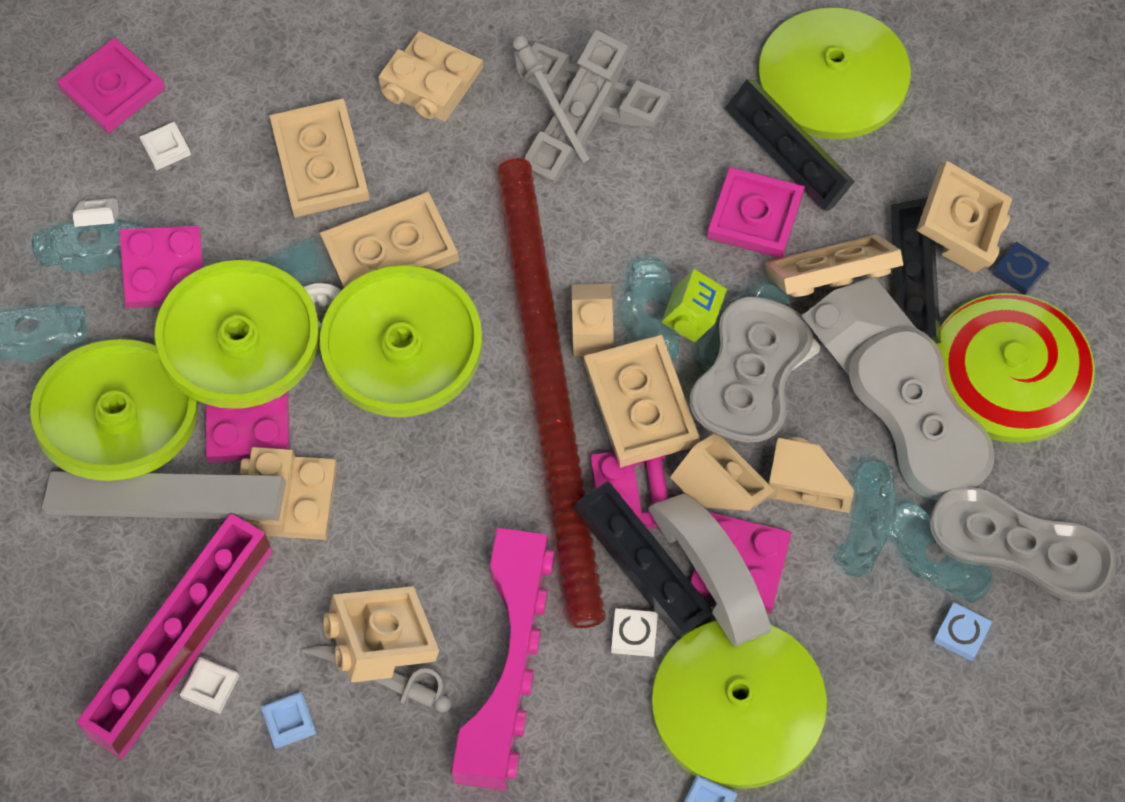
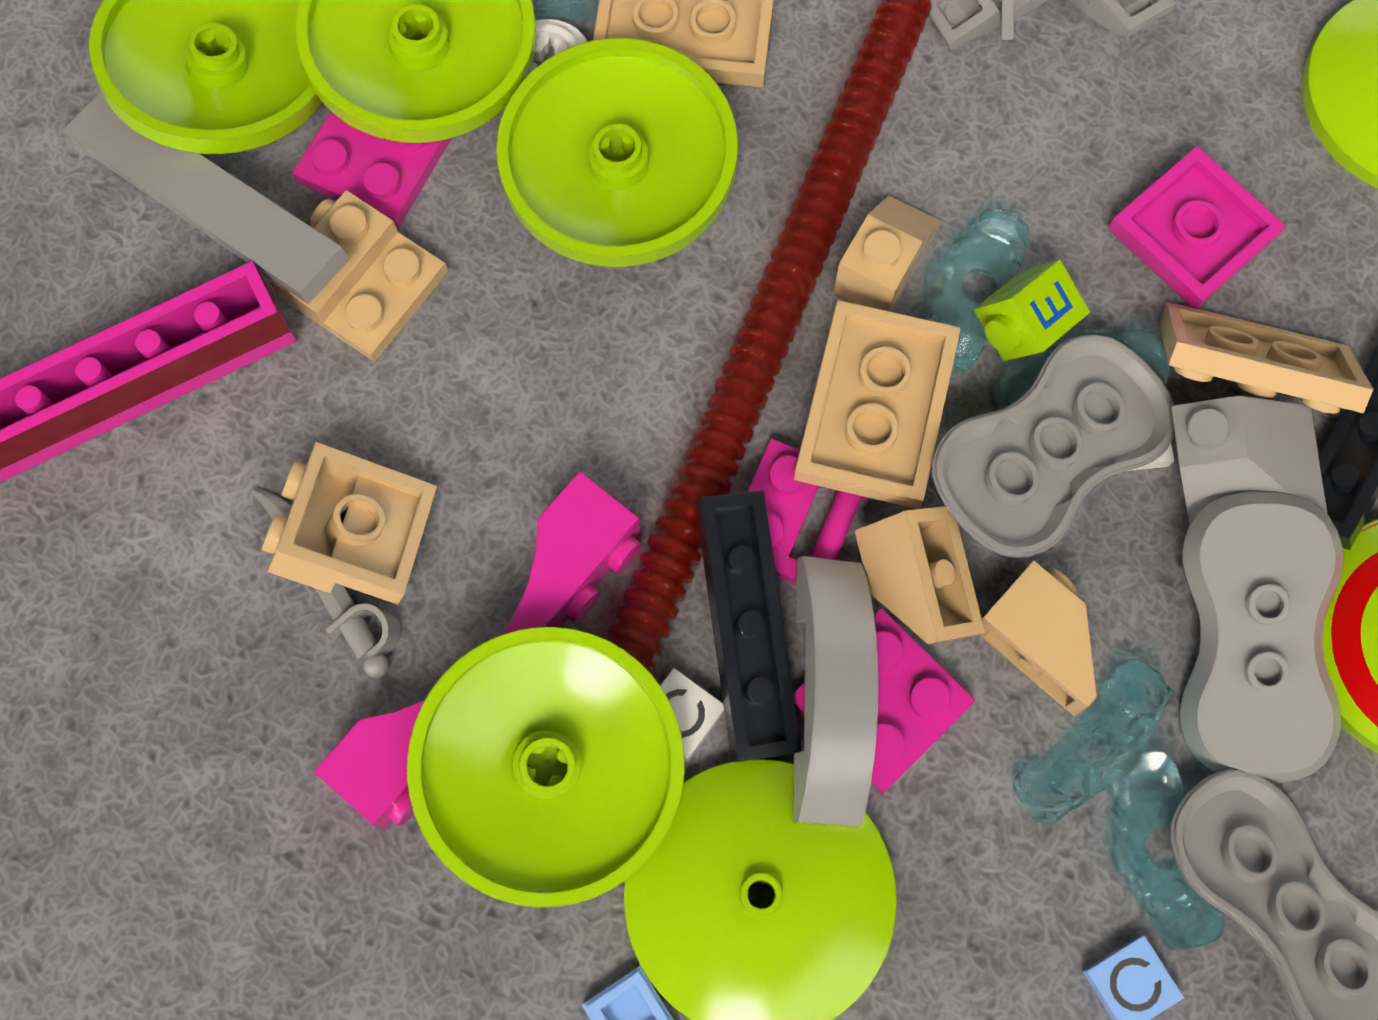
camera: 30 degrees right, 10 degrees up
(209, 685) = (114, 469): white tile -> none
(288, 720) = (177, 571): light blue tile -> none
(581, 692) = (545, 767): none -> lime dish
(789, 144) = (1300, 159): black plate -> none

